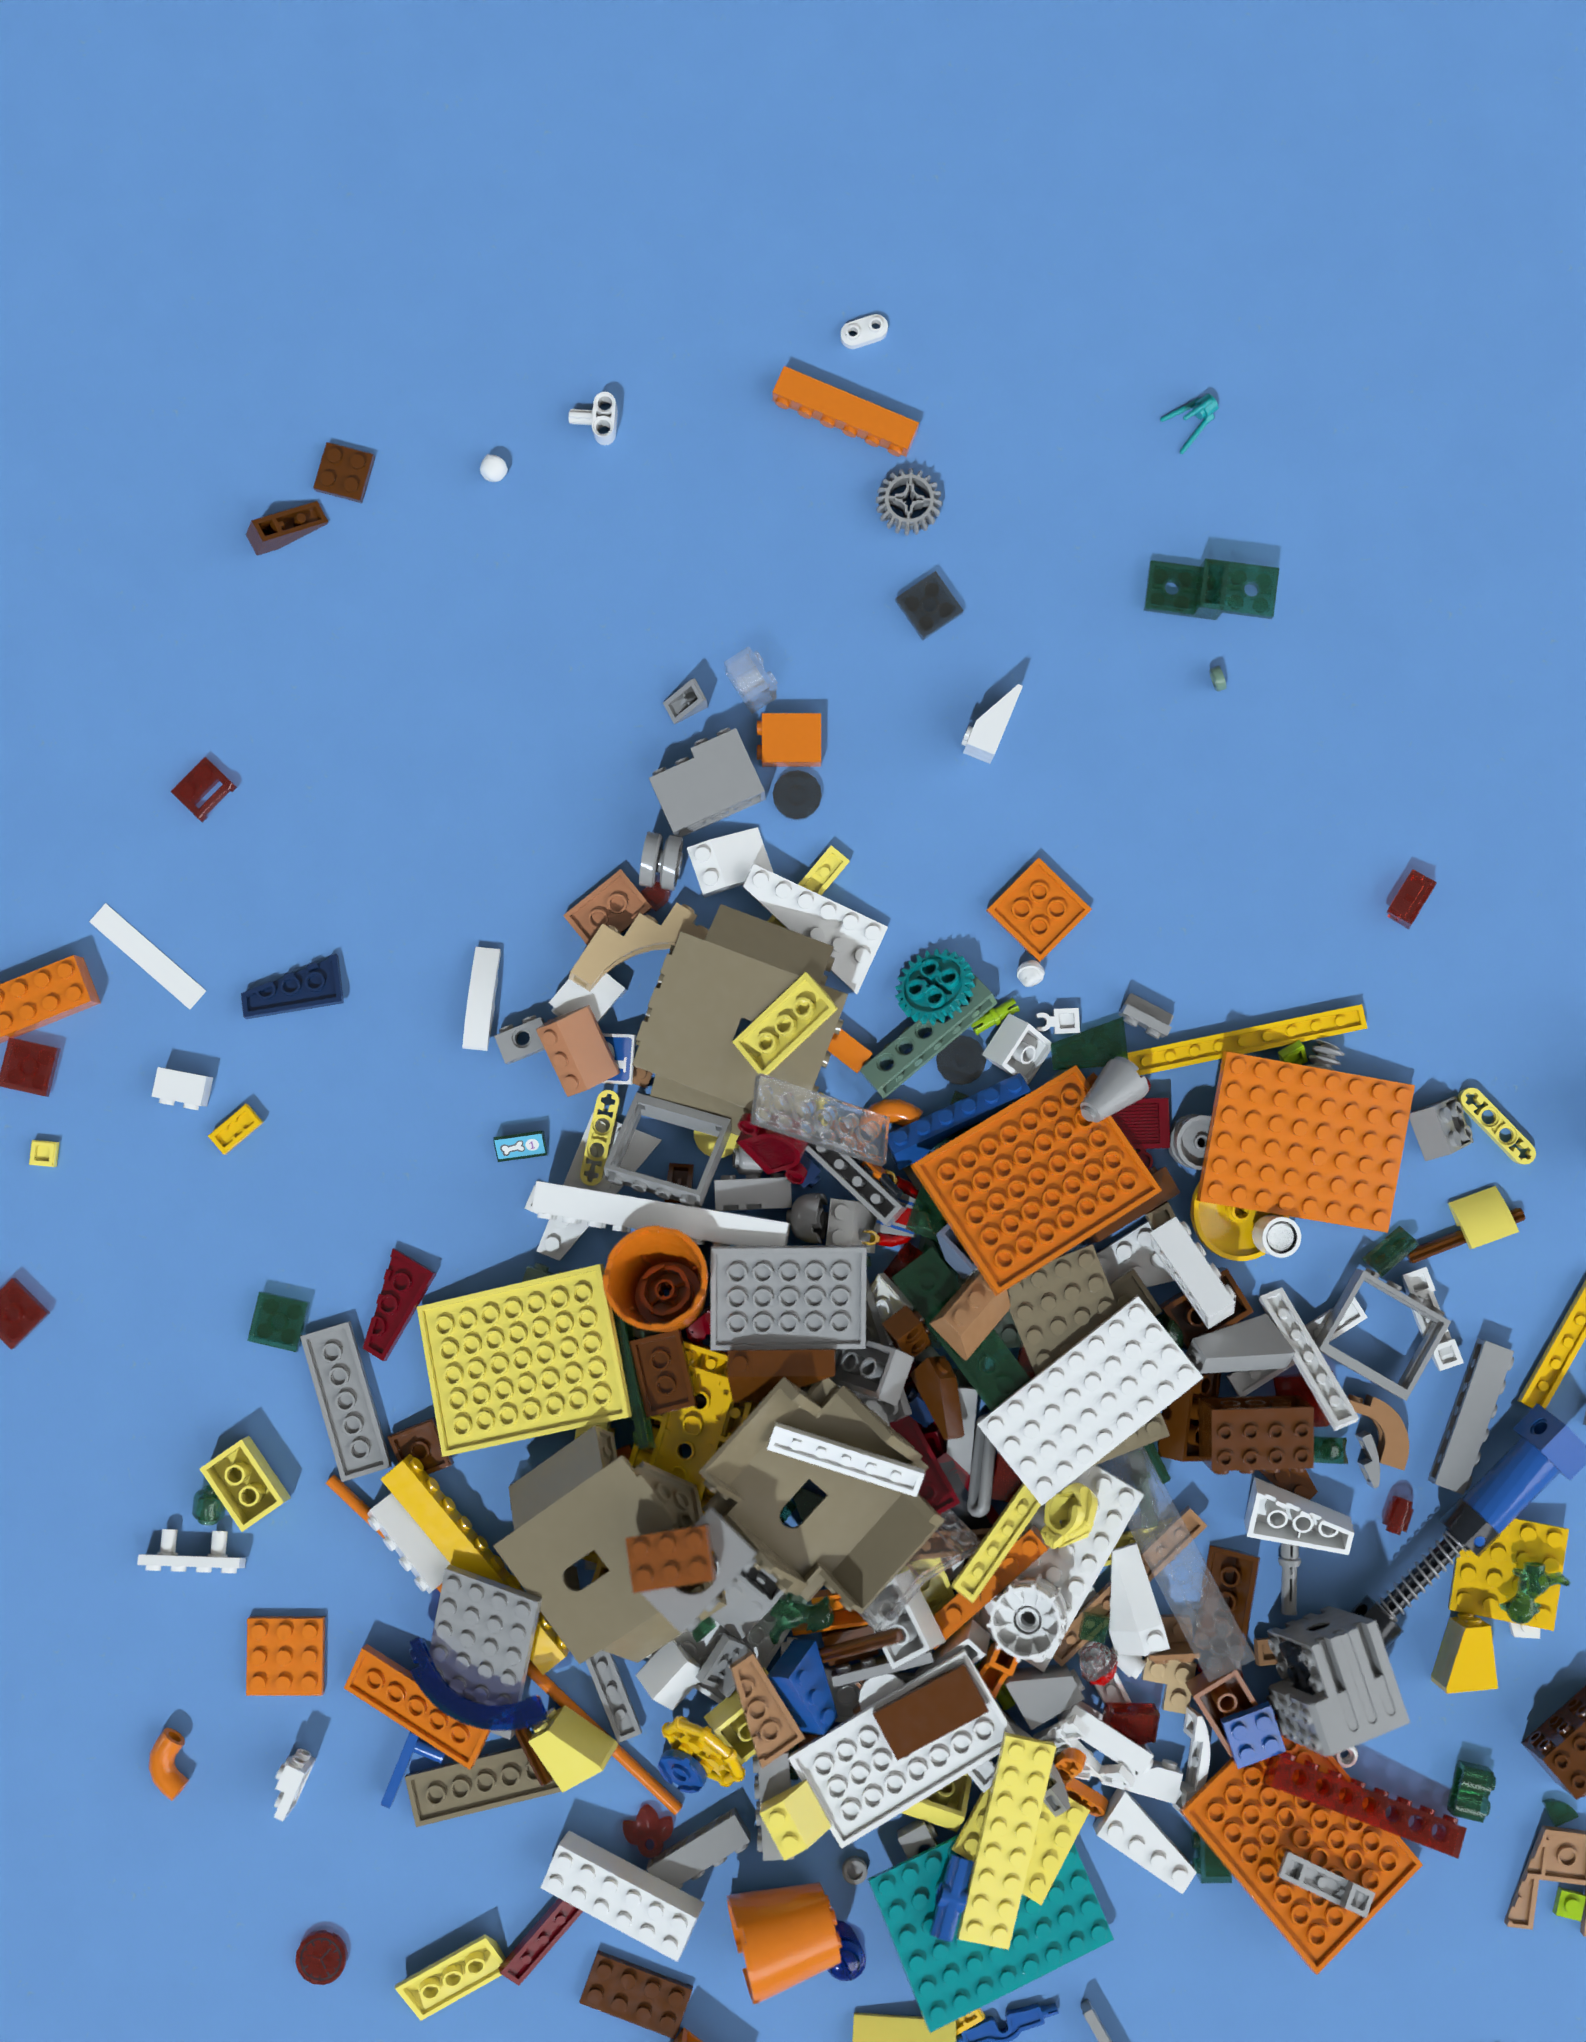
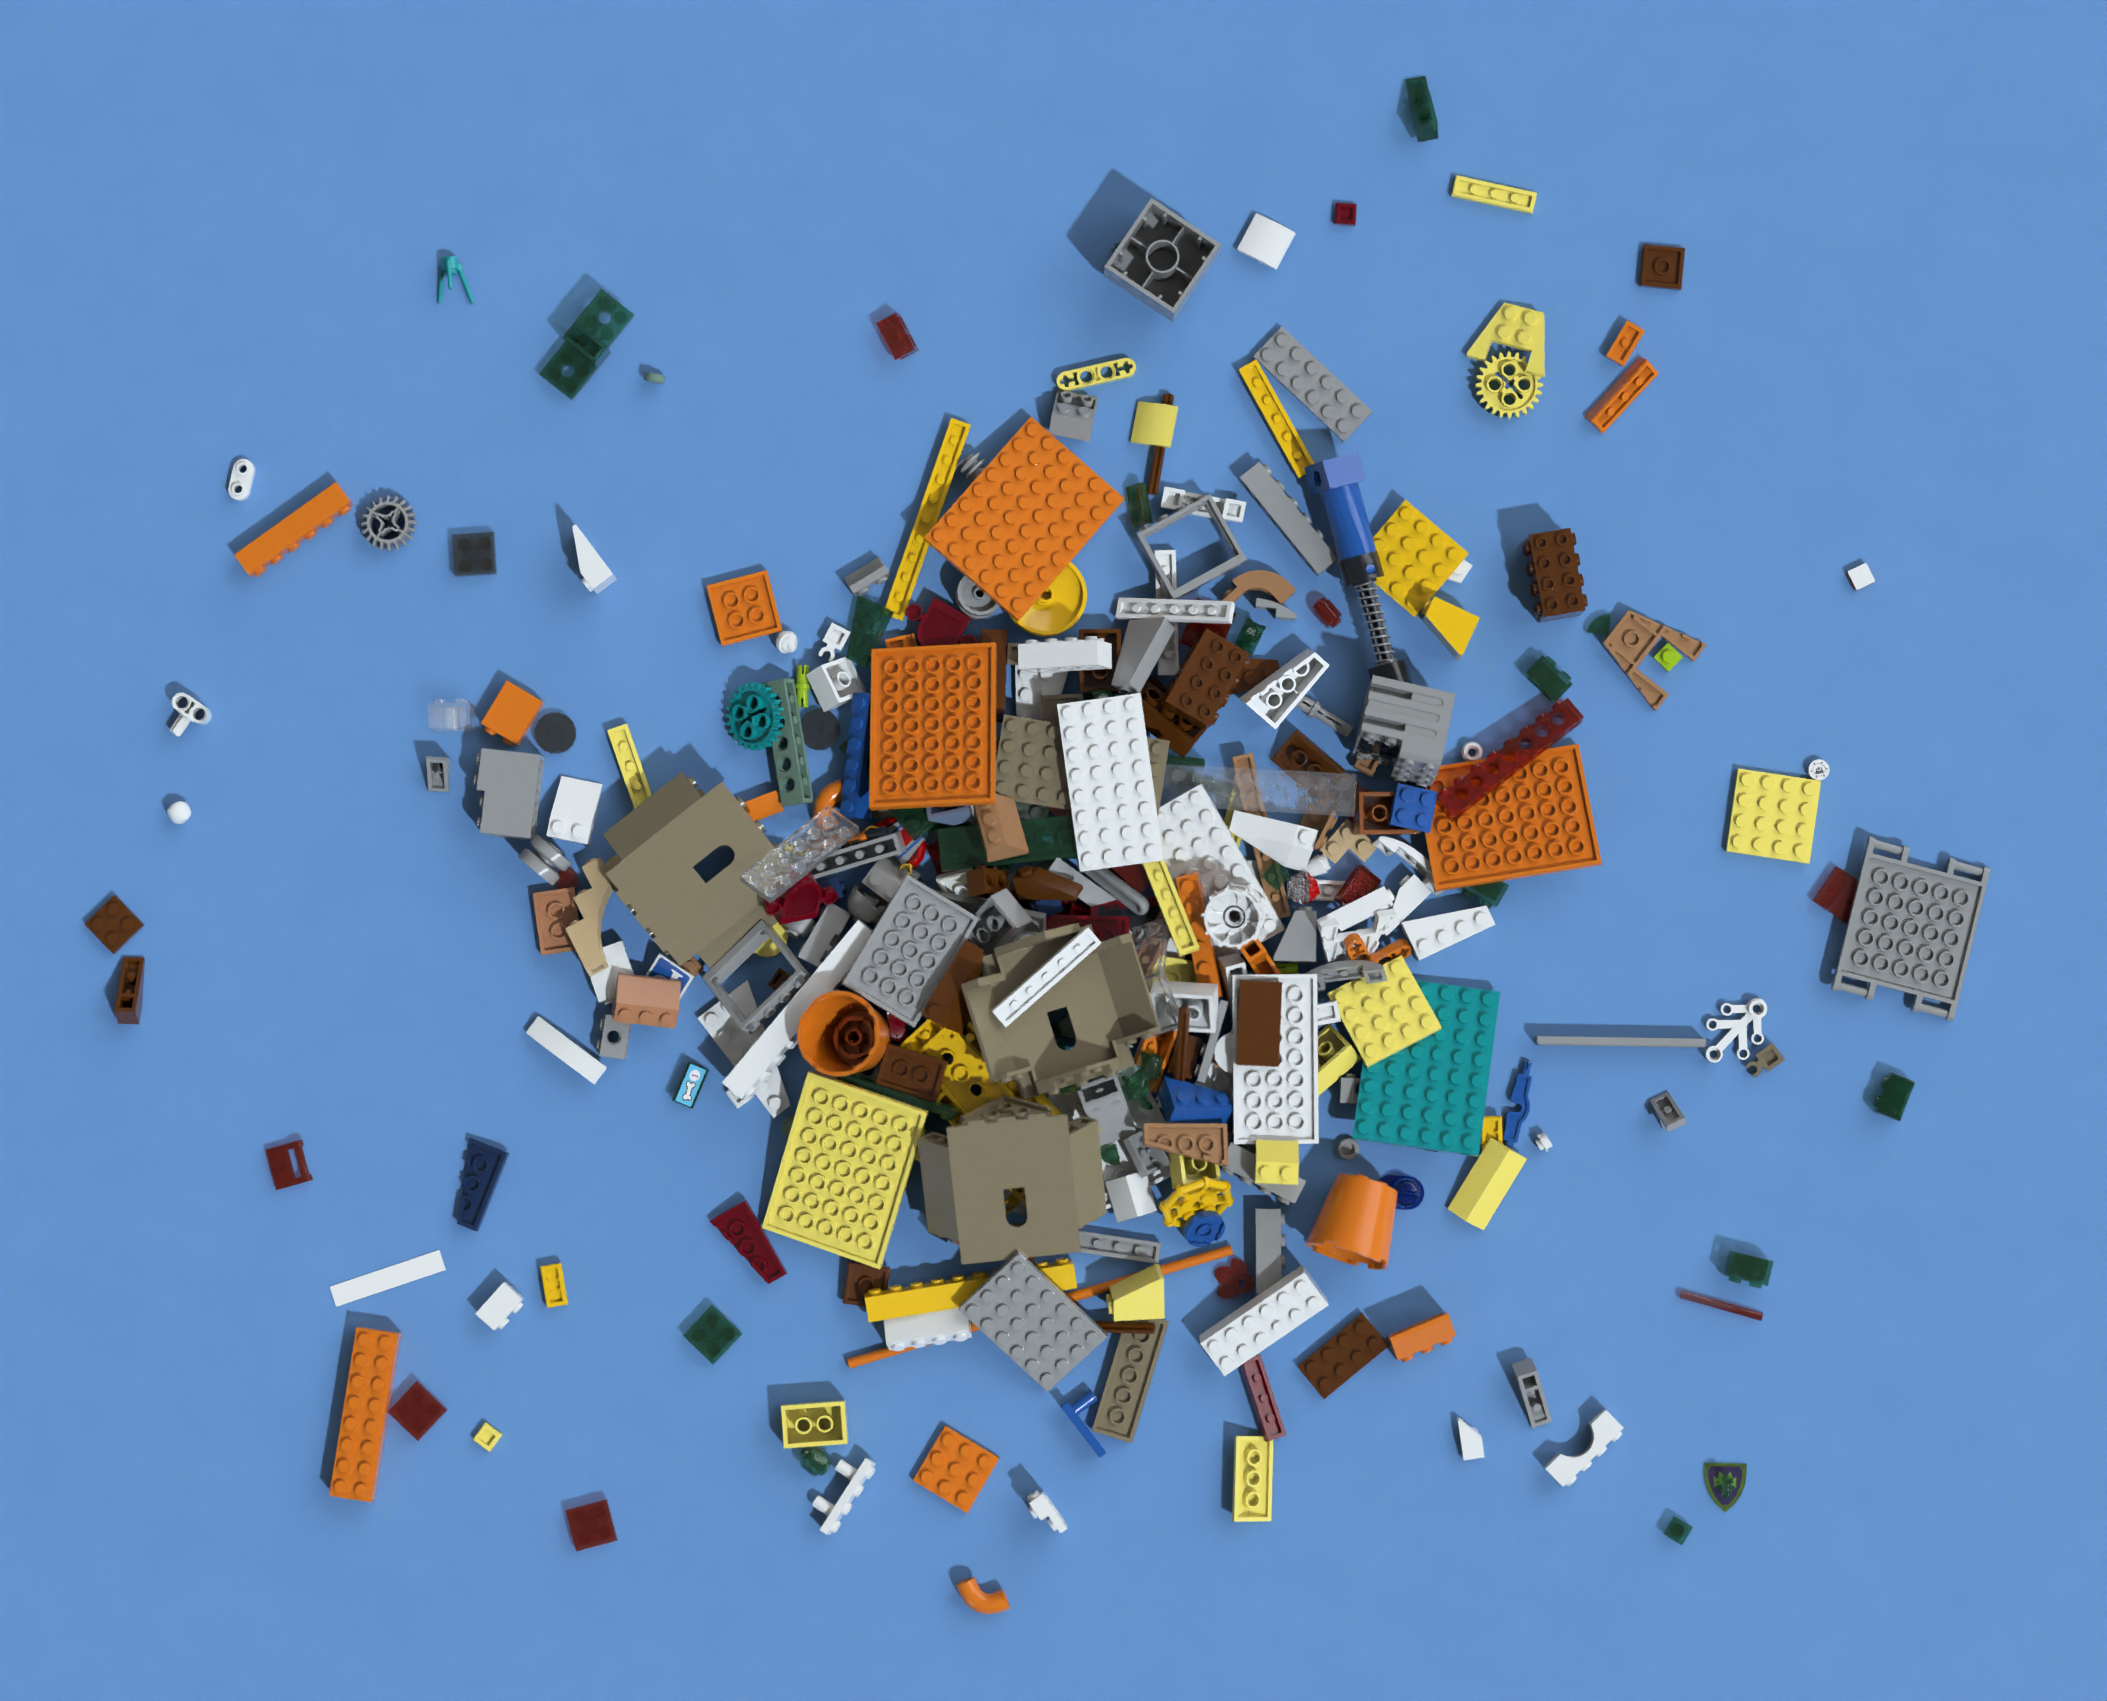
camera: 60 degrees left, 0 degrees up
(321, 1957) = (1184, 1566): clear red tile -> none
(346, 1401) = (799, 1318): light grey plate -> none
(398, 1696) = (1046, 1390): orange plate -> none
(487, 1717) = (1077, 1340): clear blue arch -> none
(597, 1137) = (719, 1022): light yellow beam -> none
(670, 1558) = (1034, 1131): dark orange brick -> none
(733, 1555) = (1076, 1144): light grey arch -> none
(785, 1024) = (716, 838): light yellow slope -> none
(817, 917) = (647, 775): white wing -> none
(951, 1897) = (1396, 1085): blue piece -> none
(1006, 1840) = (1379, 1023): light yellow plate -> none
(1077, 1510) = (1179, 838): light yellow helmet -> none
(1113, 1090) = (904, 633): light grey cone -> none
(1276, 1235) = (1077, 580): white piece -> none
(1294, 1054) = (957, 488): lime tile -> none
(1325, 1884) = (1543, 820): light grey slope -> none
(1531, 1584) = (1424, 549): clear green animal -> none

